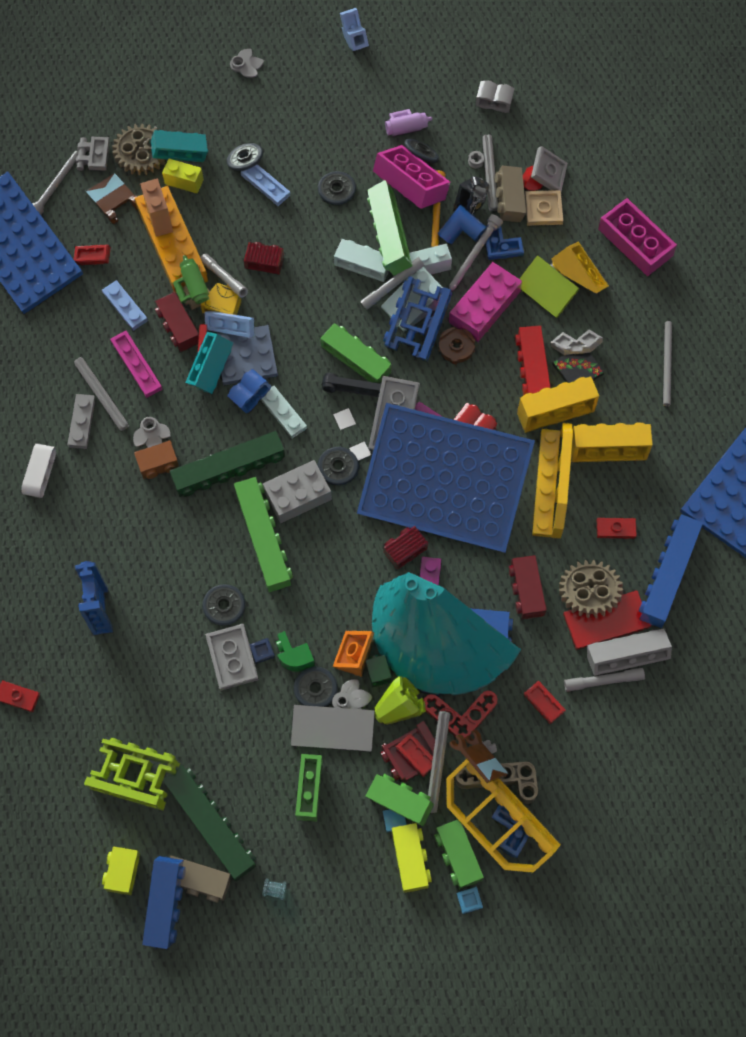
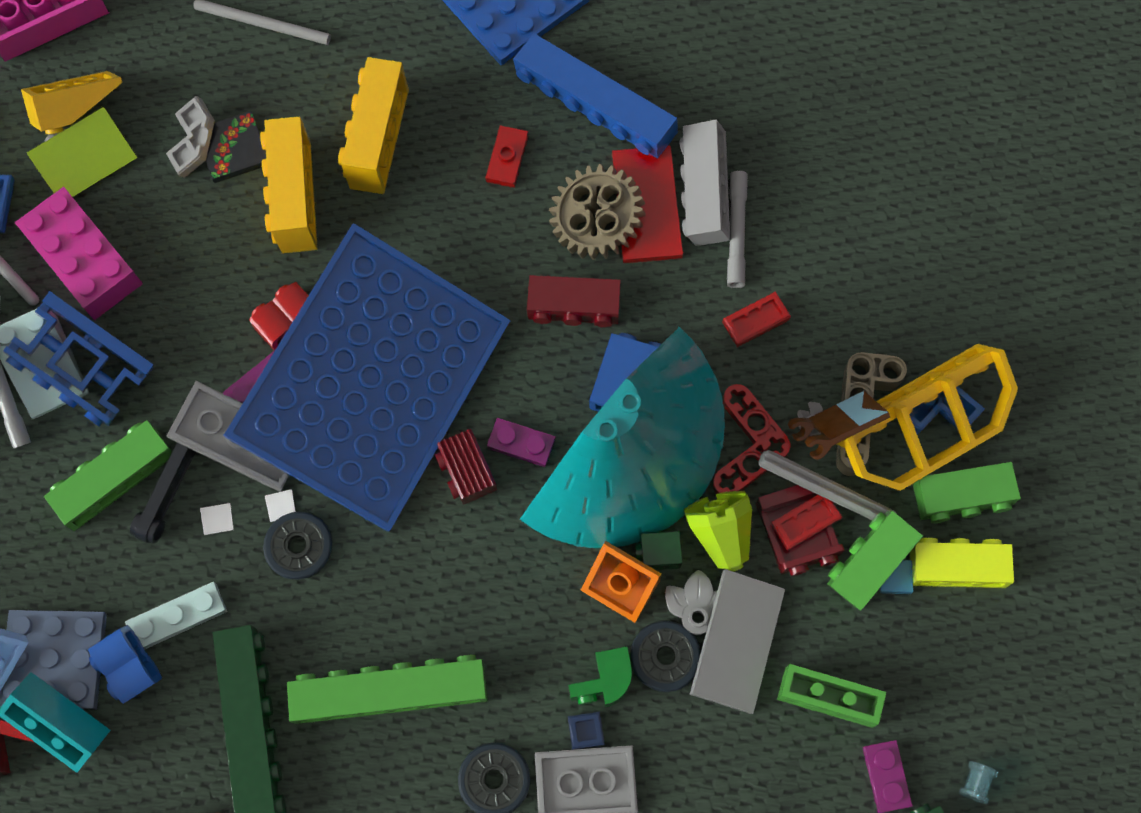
camera: 75 degrees left, 5 degrees up
(268, 833) = (887, 776): none -> magenta plate
(297, 491) = (328, 618): light grey brick -> none
(452, 354) = (124, 309): reddish brown plate -> none
(469, 900) = (1033, 493): dark azure tile -> none
(533, 359) = (205, 207): red brick -> none
(546, 482) = (409, 235): yellow plate -> none

